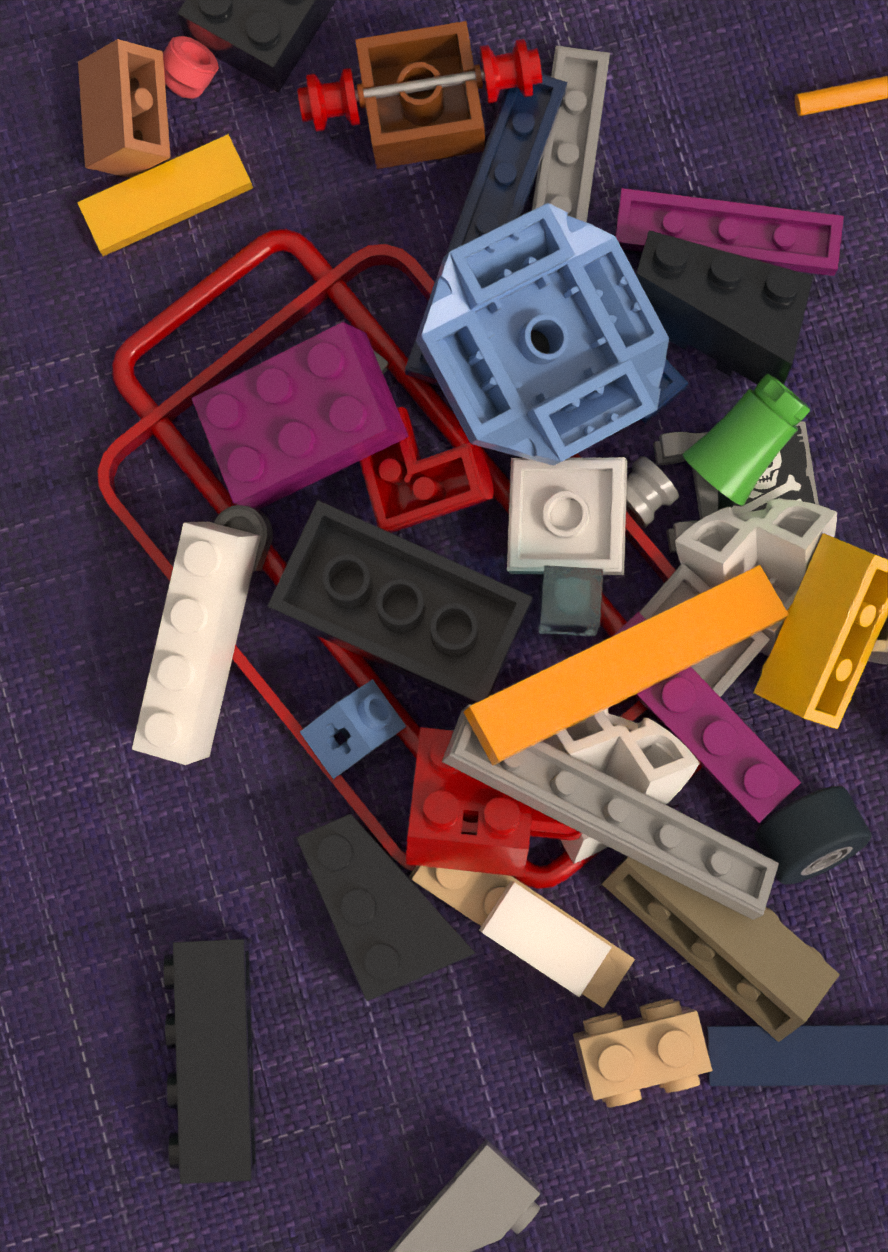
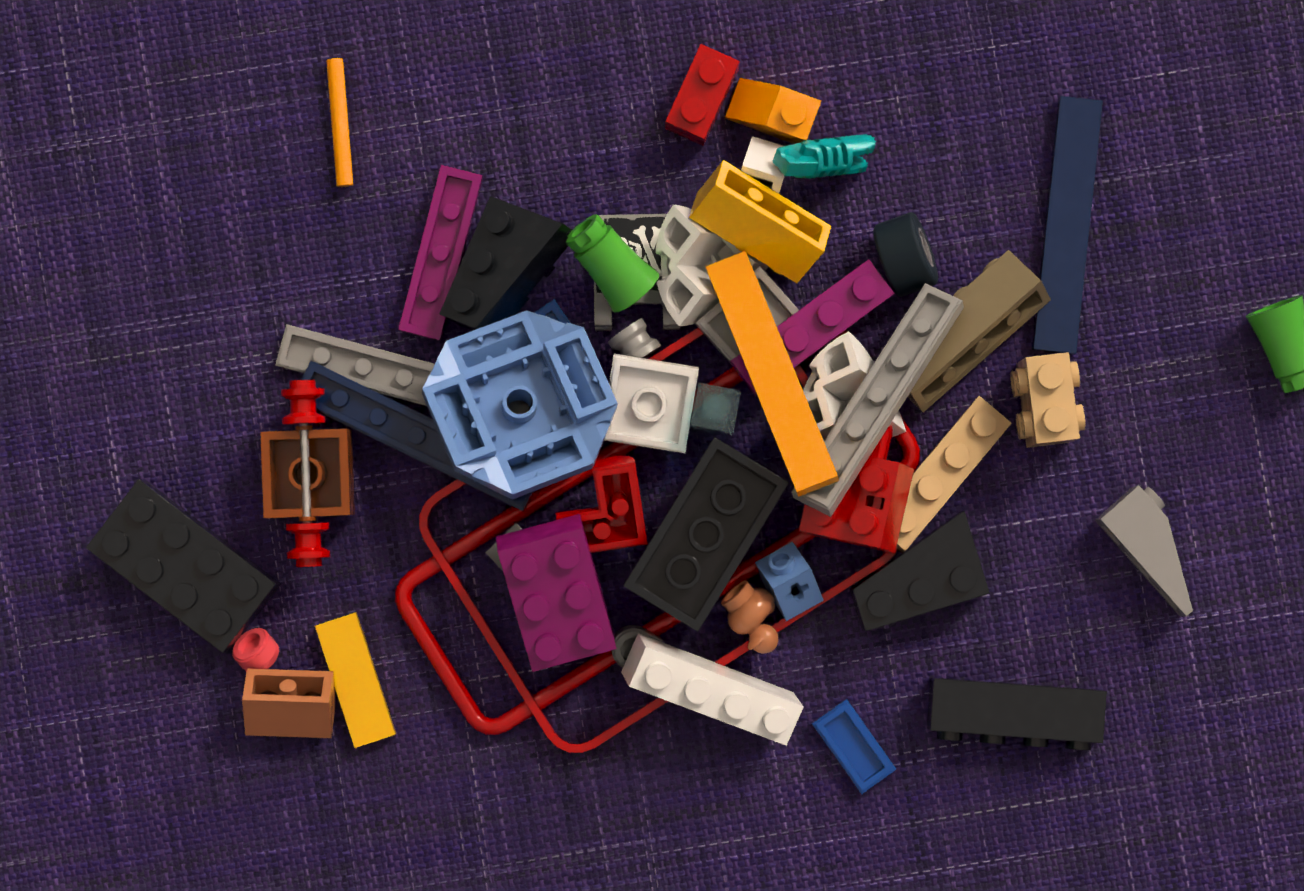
camera: 85 degrees left, 5 degrees up
(145, 846) = (853, 746): none -> blue tile
(306, 676) = (746, 611): none -> nougat animal
(545, 938) = (959, 459): white tile -> none

